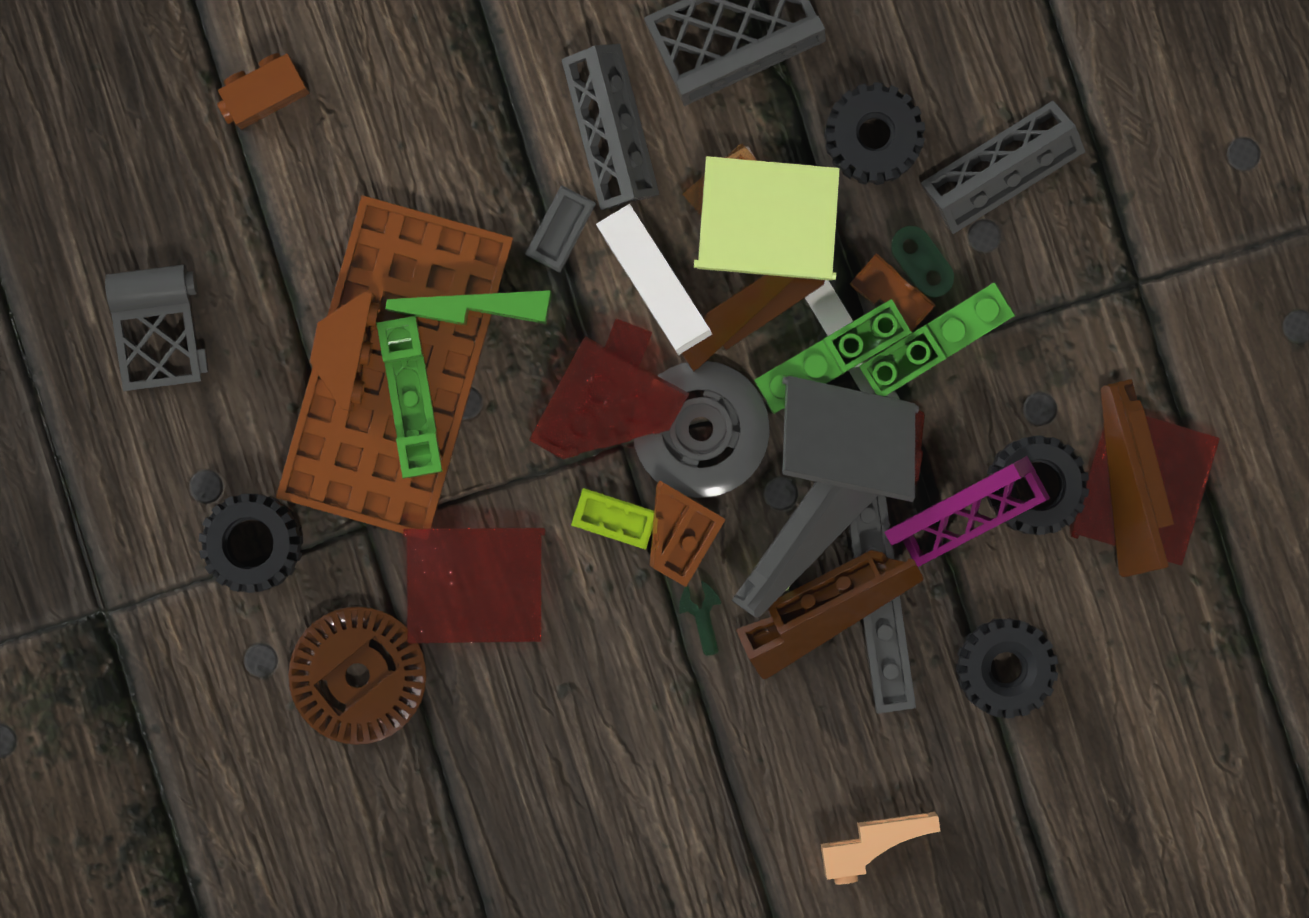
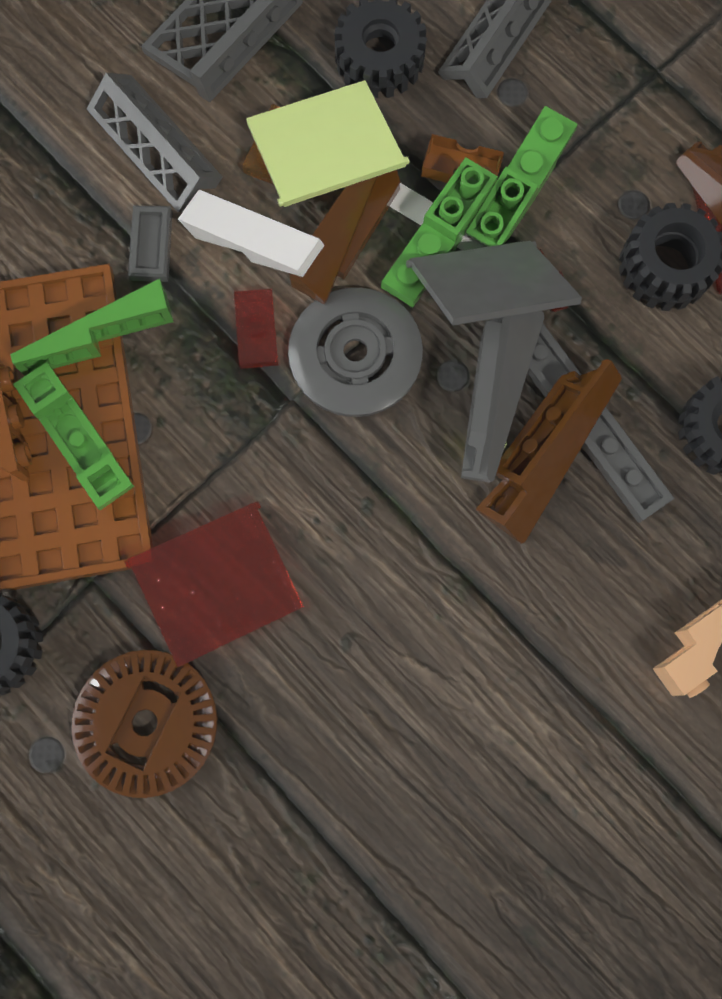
camera: 30 degrees left, 10 degrees down
(605, 404) = (258, 362): clear red plate -> none
(613, 518) = (316, 463): lime plate -> none
(680, 533) = (383, 445): dark orange wing -> none
(702, 617) = (438, 511): clear green bar -> none
(924, 260) = (475, 126): clear green plate -> none
(957, 503) = (619, 289): magenta fence -> none

